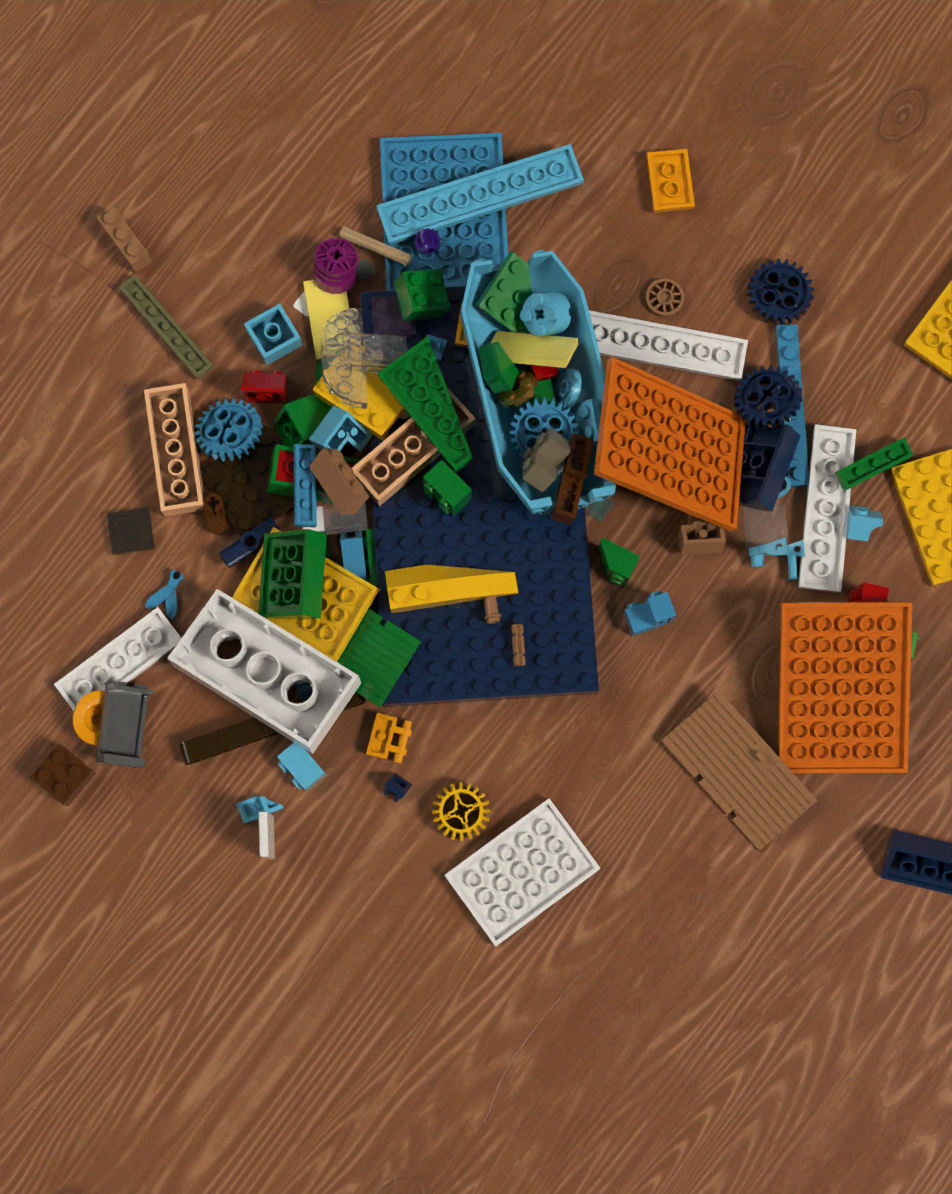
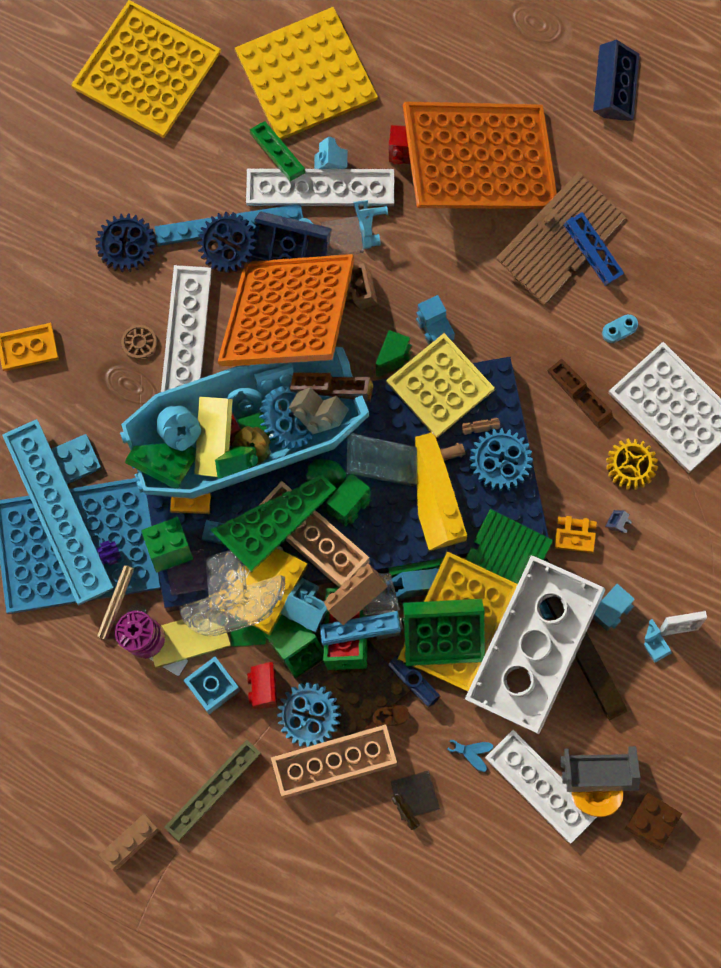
camera: 90 degrees left, 5 degrees down
(113, 517) = (405, 811): none -> dark brown axle
(481, 471) = (329, 469): none -> green hair
(486, 527) = (381, 460): none -> clear light blue plate
(494, 668) = (496, 475): none -> dark azure gear
(539, 222) = (76, 458): none -> medium azure plate
(551, 767) = (578, 391): none -> reddish brown slope
(570, 605) = (440, 385): none -> light yellow plate
(623, 823) = (620, 327): none -> medium azure plate
(712, 801) = (590, 252): none -> blue fence

